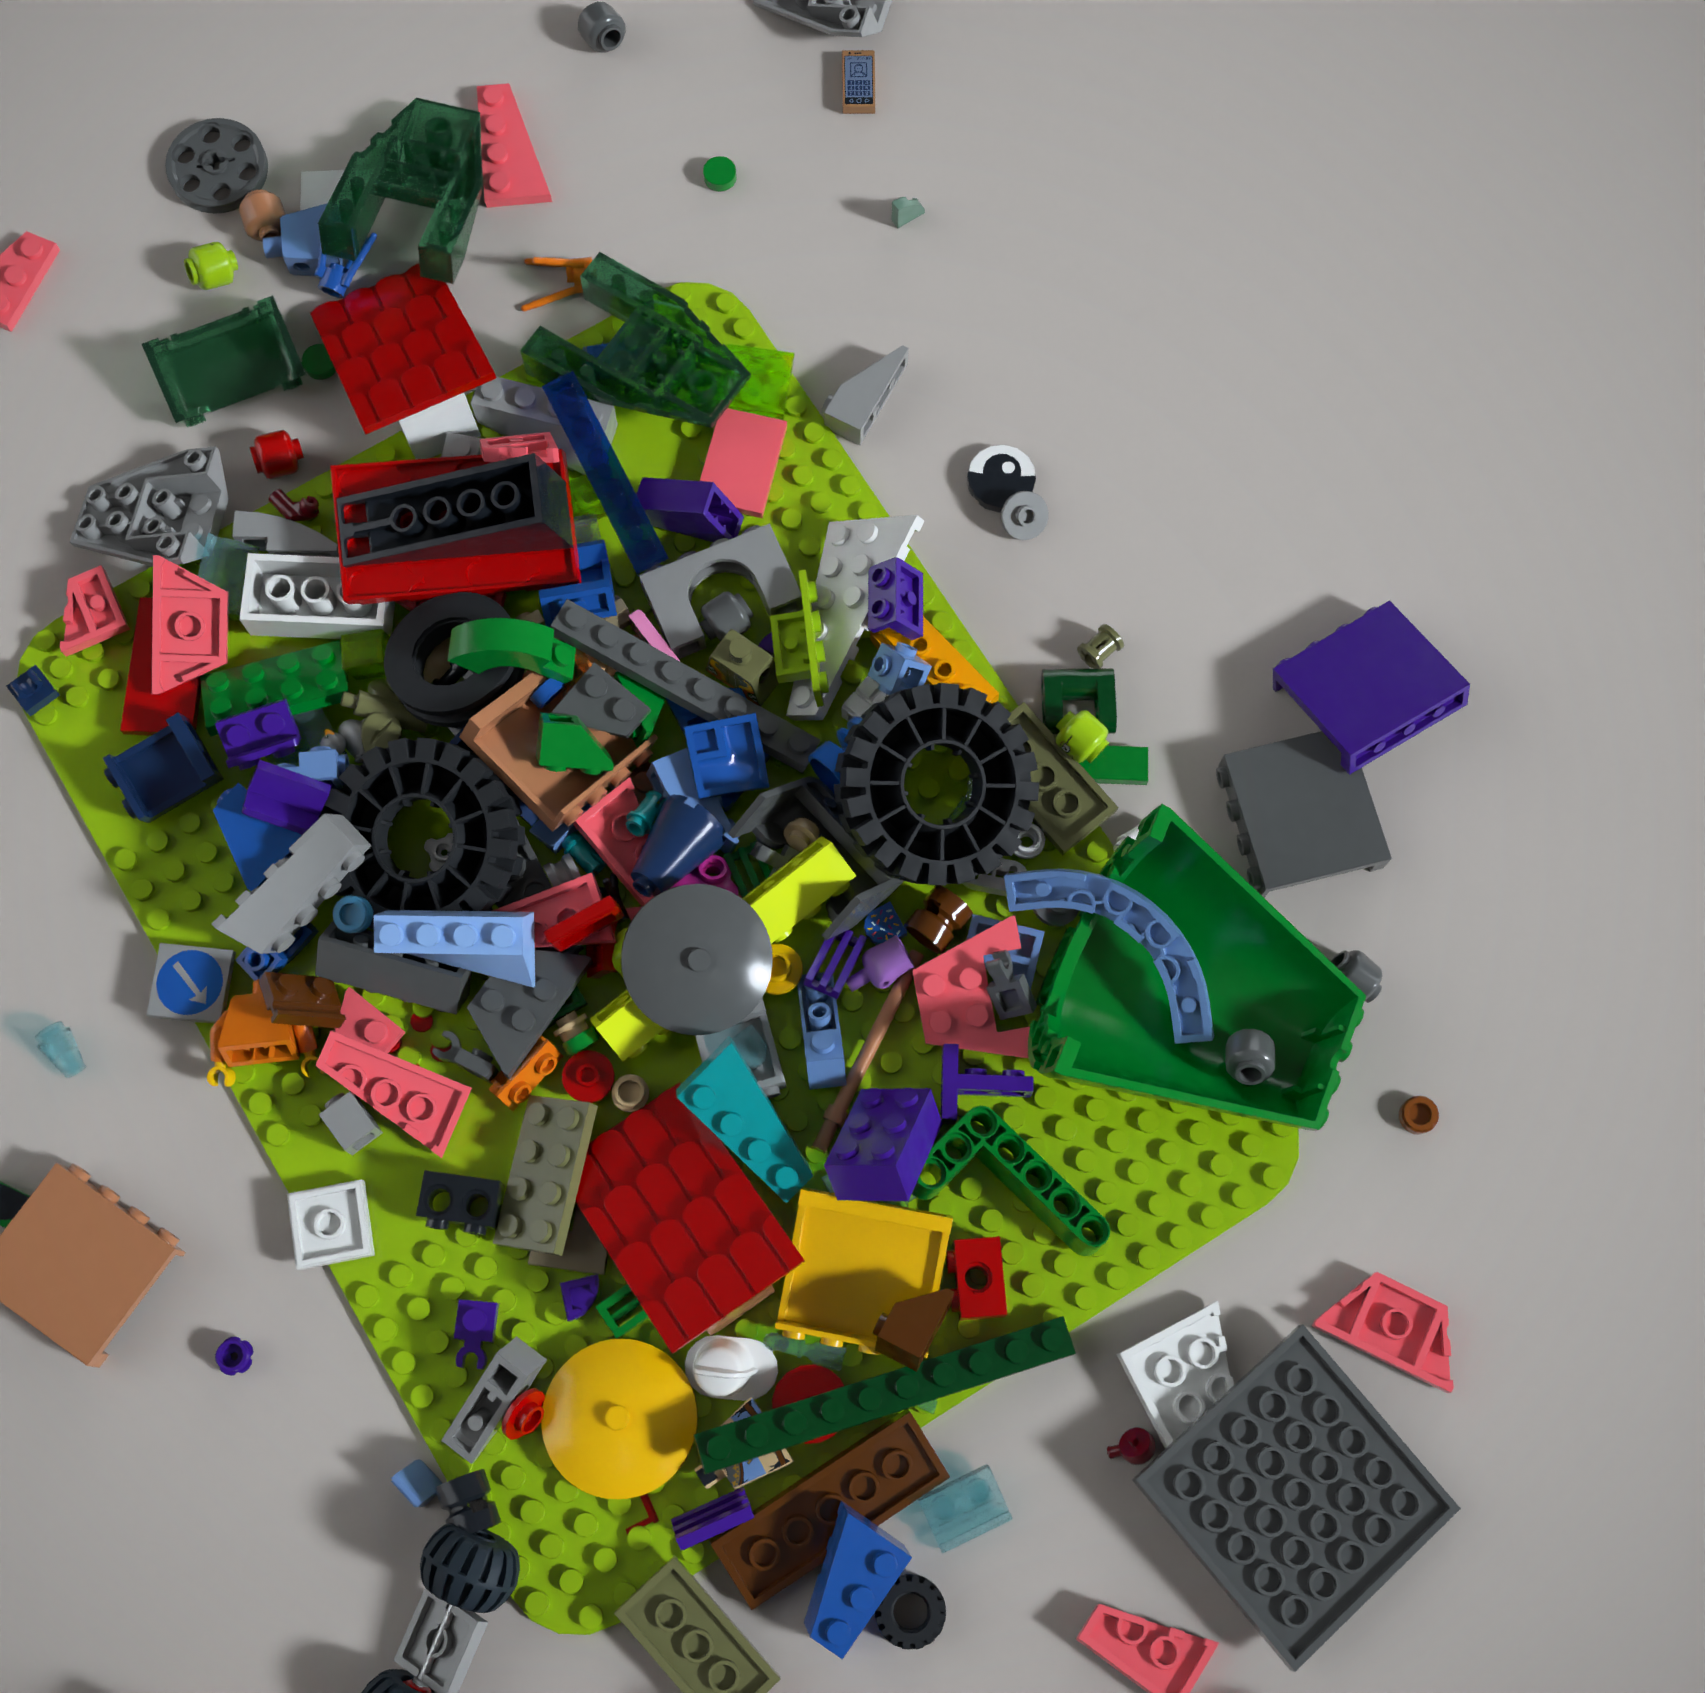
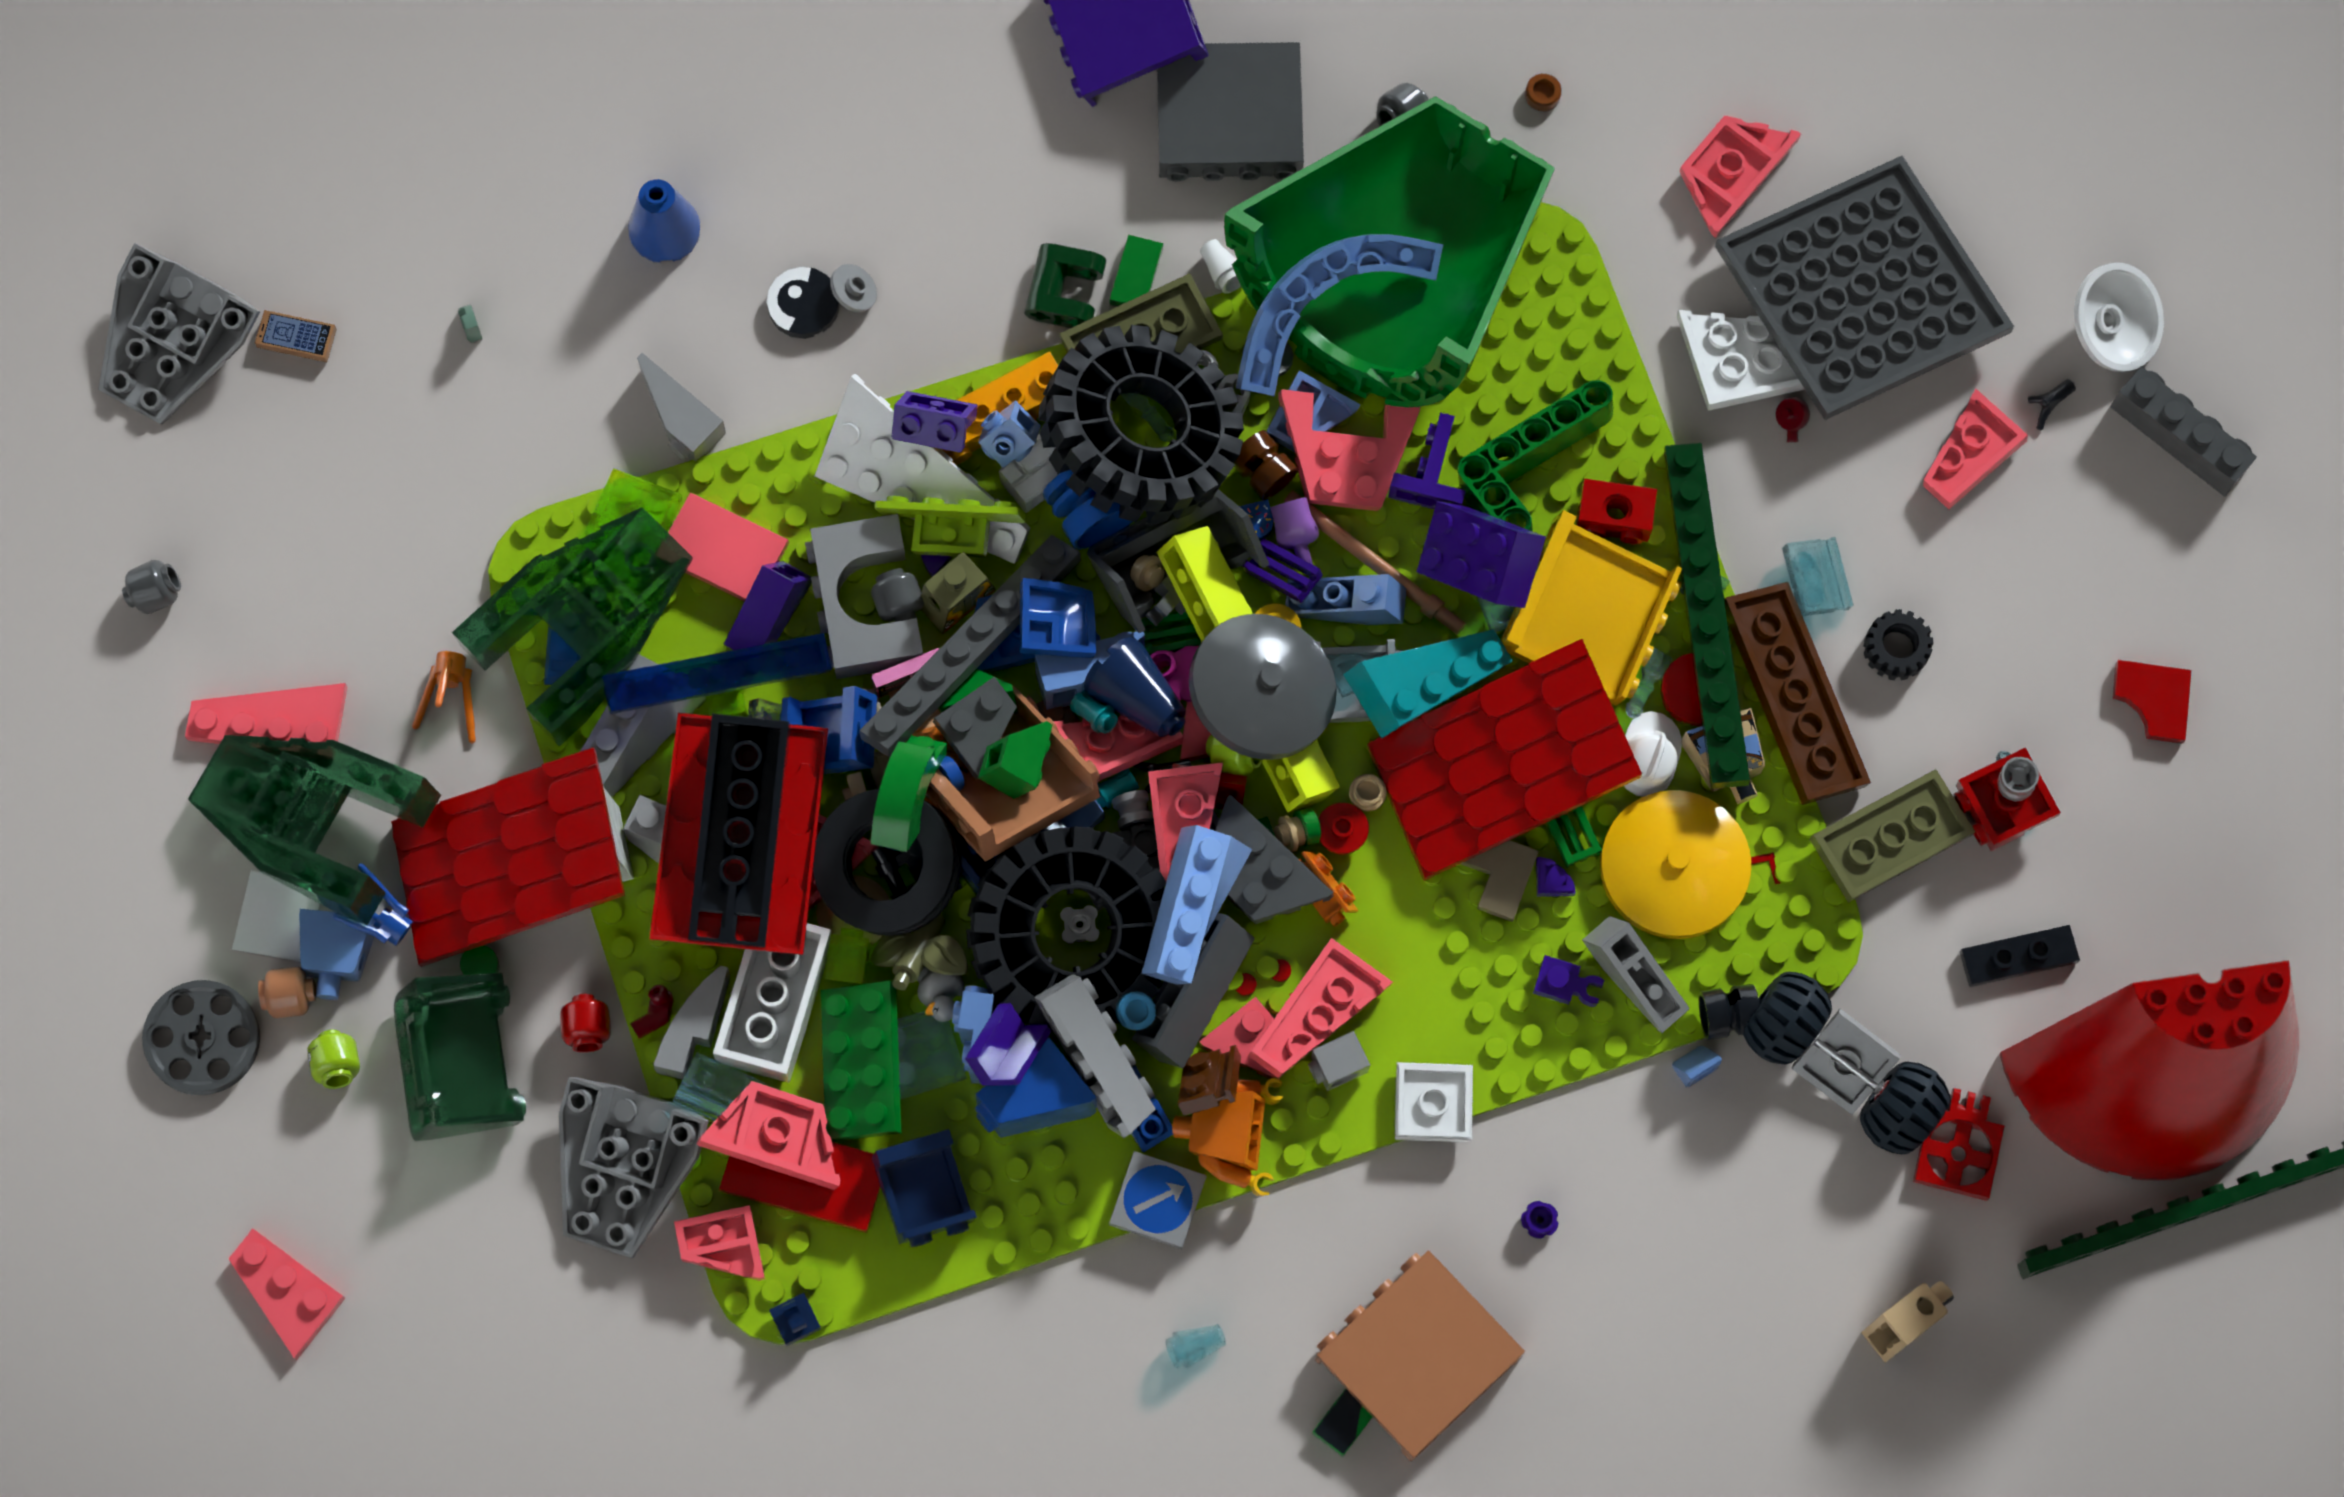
camera: 80 degrees left, 0 degrees up
(258, 734) = (917, 1077): dark purple bracket -> none
(462, 1193) = (1434, 967): black brick -> none
(476, 1062) = (1306, 931): dark grey plate -> none
(513, 446) = (680, 741): coral wing -> none
(524, 1414) = (1658, 944): red piece -> none
(545, 1175) = (1432, 883): olive plate -> none
(584, 924) = (1205, 781): red tile -> none
(712, 1518) = (1785, 795): dark purple tile -> none
(719, 173) = (367, 503): green tile -> none
(853, 1581) = (1865, 683): blue wedge -> none
(912, 1327) = (1655, 571): reddish brown slope -> none
(1008, 992) = (1353, 416): dark grey plate -> none
(1043, 339) = (663, 223): none -> blue cone
(1081, 736) = (1109, 287): lime head -> none
(1108, 638) = (1013, 251): olive bush -> none
(1250, 1056) = (1465, 215): dark grey head -> none

